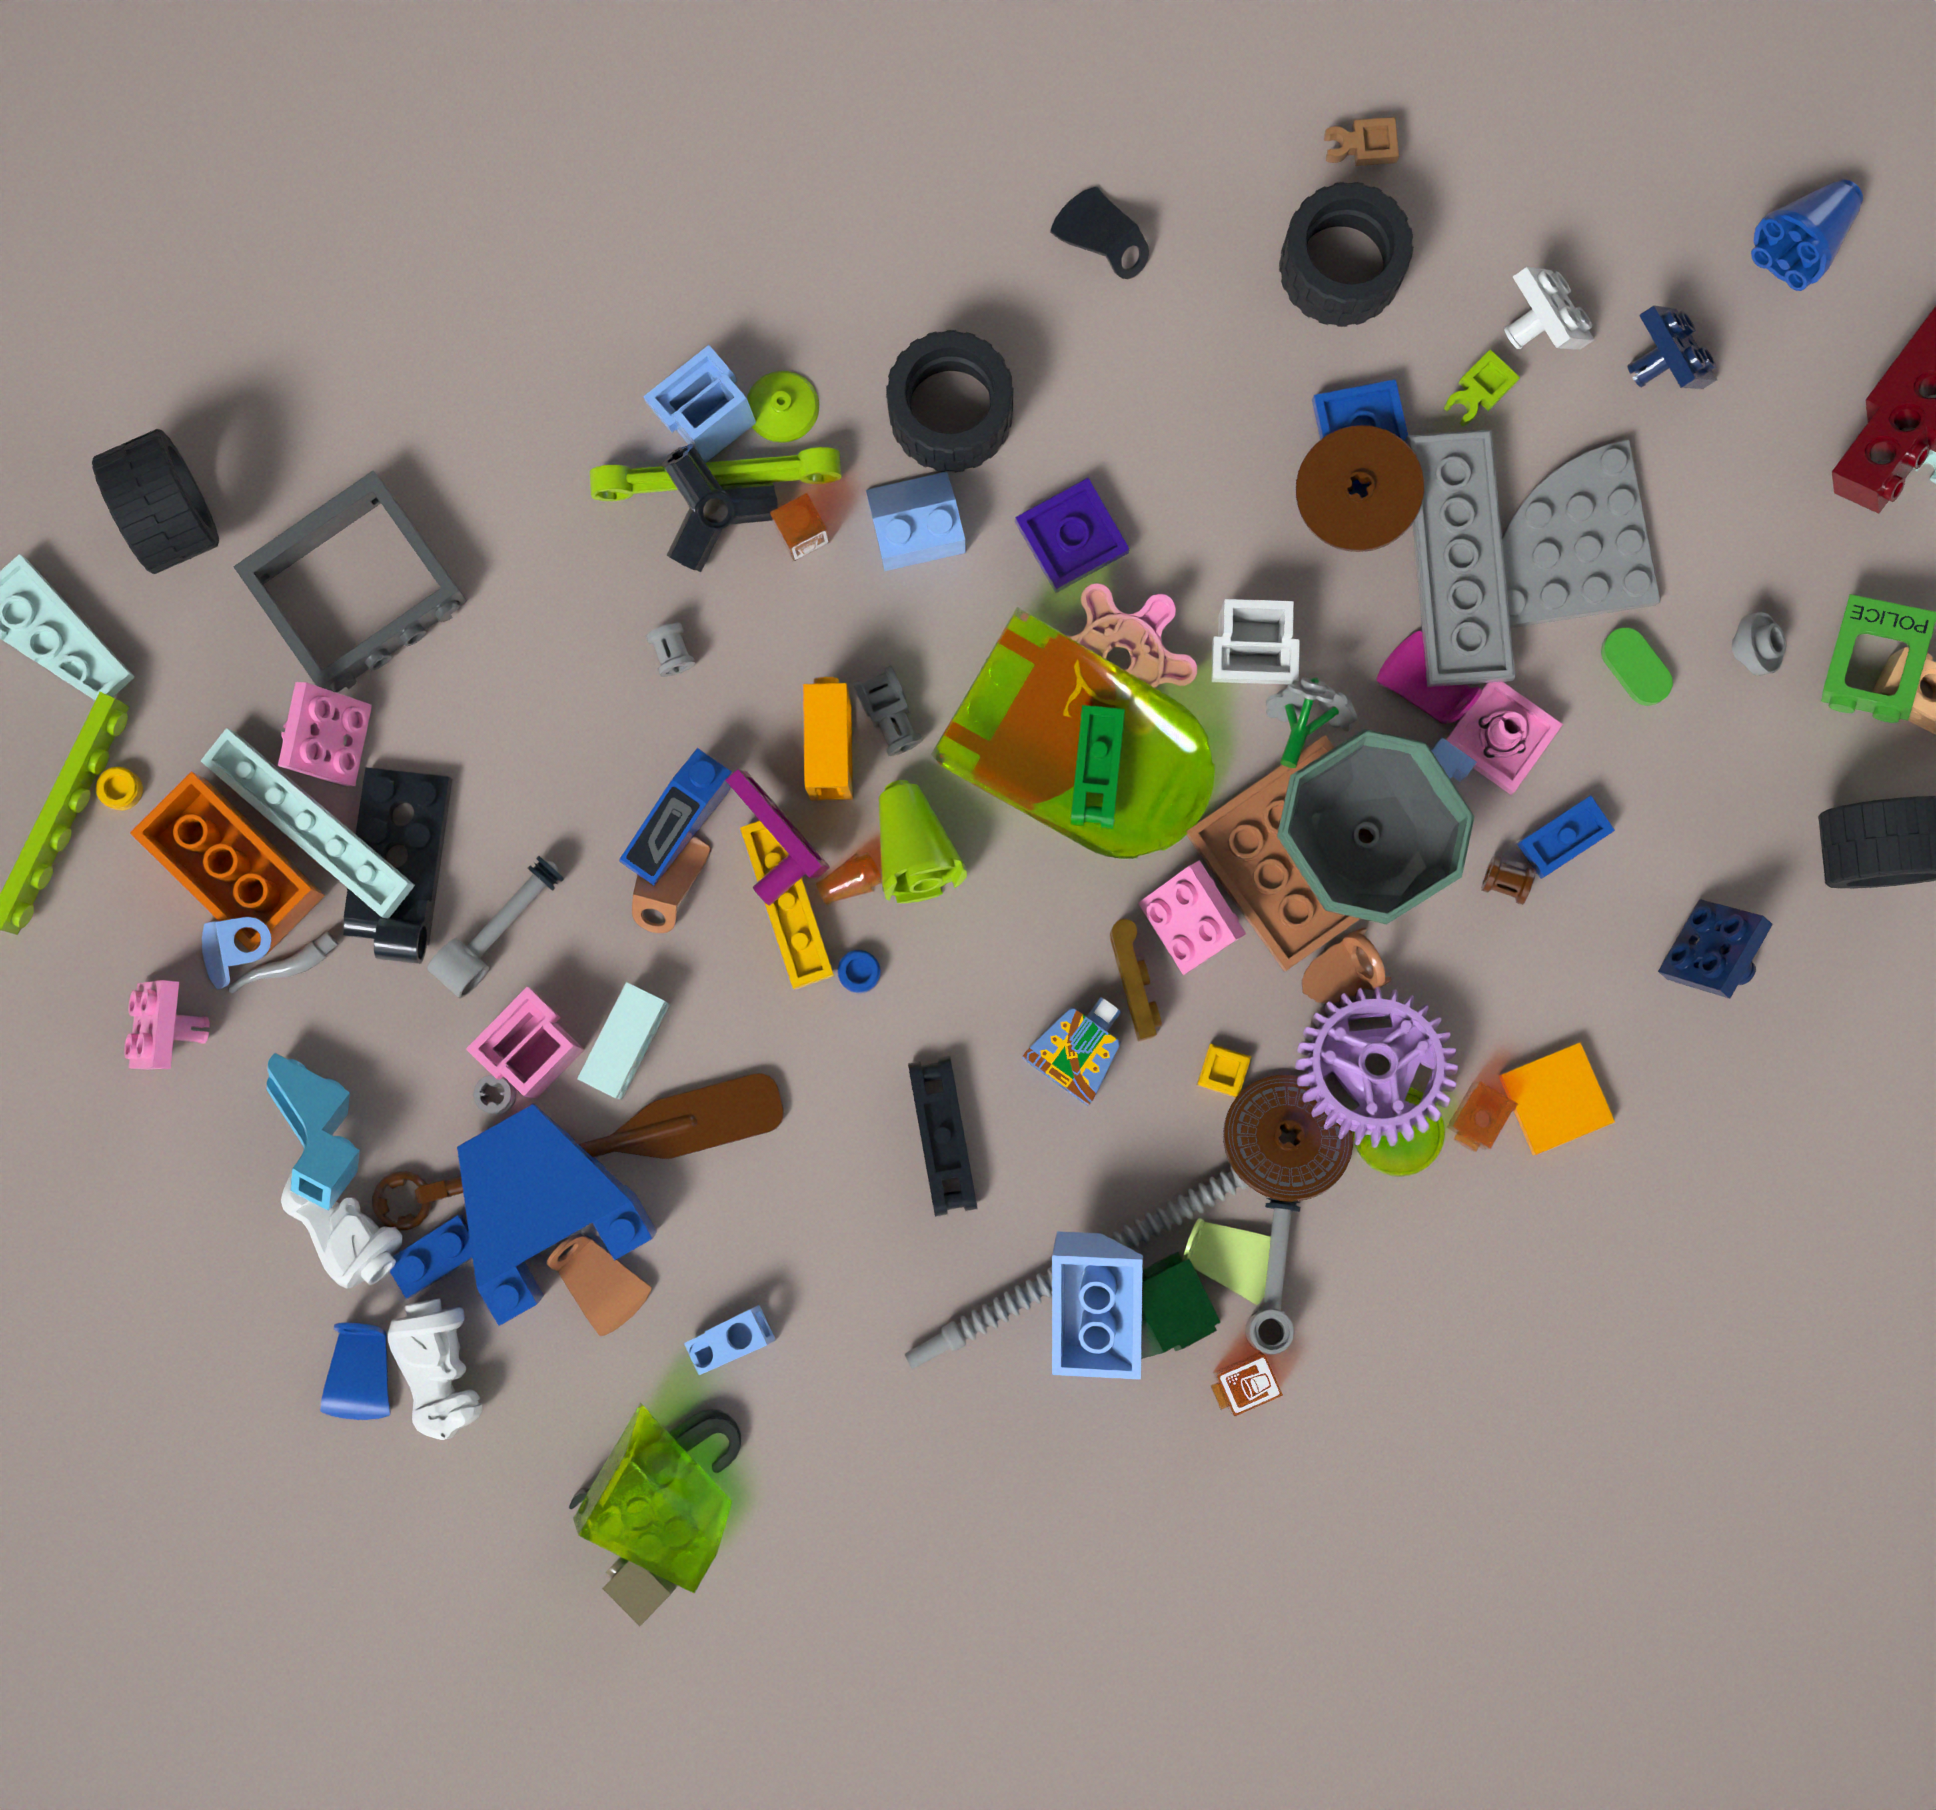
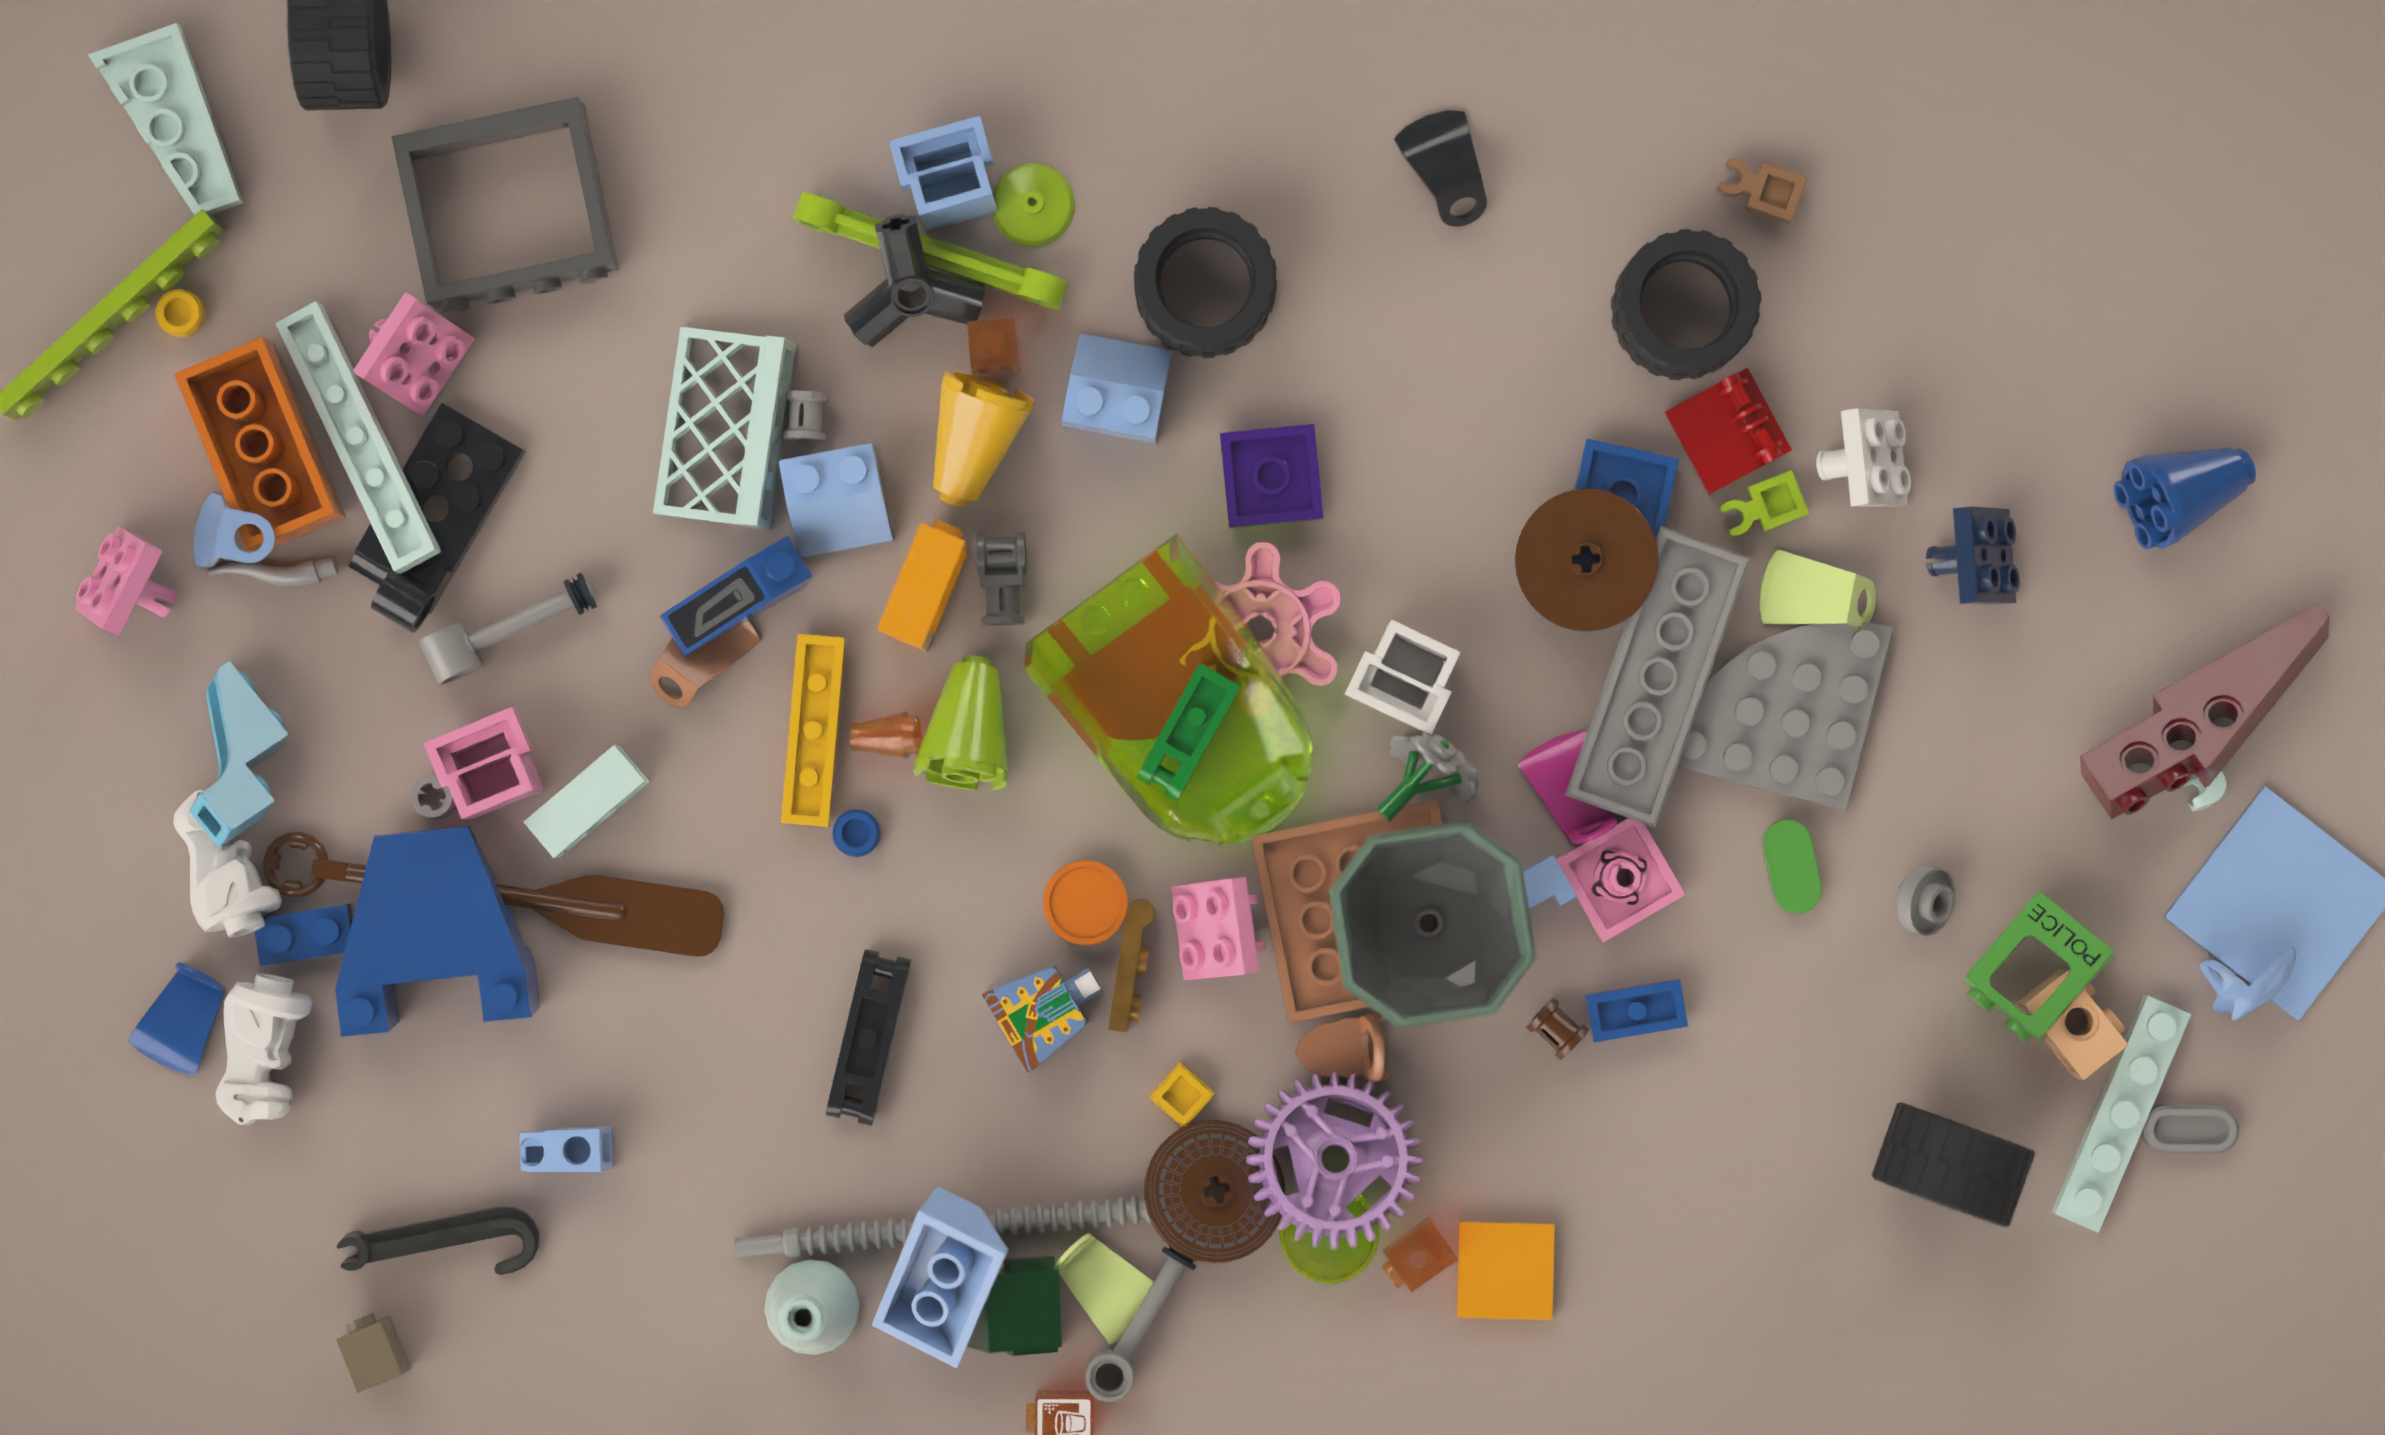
camera: 20 degrees right, 5 degrees up
(600, 1286) = (459, 1041): nougat piece -> none
(642, 677) = (764, 433): none -> light aqua fence
(655, 1505) = (423, 1281): clear neon green wedge -> none
(725, 705) = (836, 500): none -> light blue slope
(801, 855) = (847, 692): magenta piece -> none
(815, 603) = (974, 434): none -> yellow cone
(999, 1363) = (825, 1293): none -> light aqua cone
(1073, 945) = (1085, 902): none -> orange piece
(1423, 343) = (1728, 431): none -> red hinge
(1550, 441) = (1812, 592): none -> yellowish green piece
(1723, 952) = (1731, 1192): dark blue plate -> none

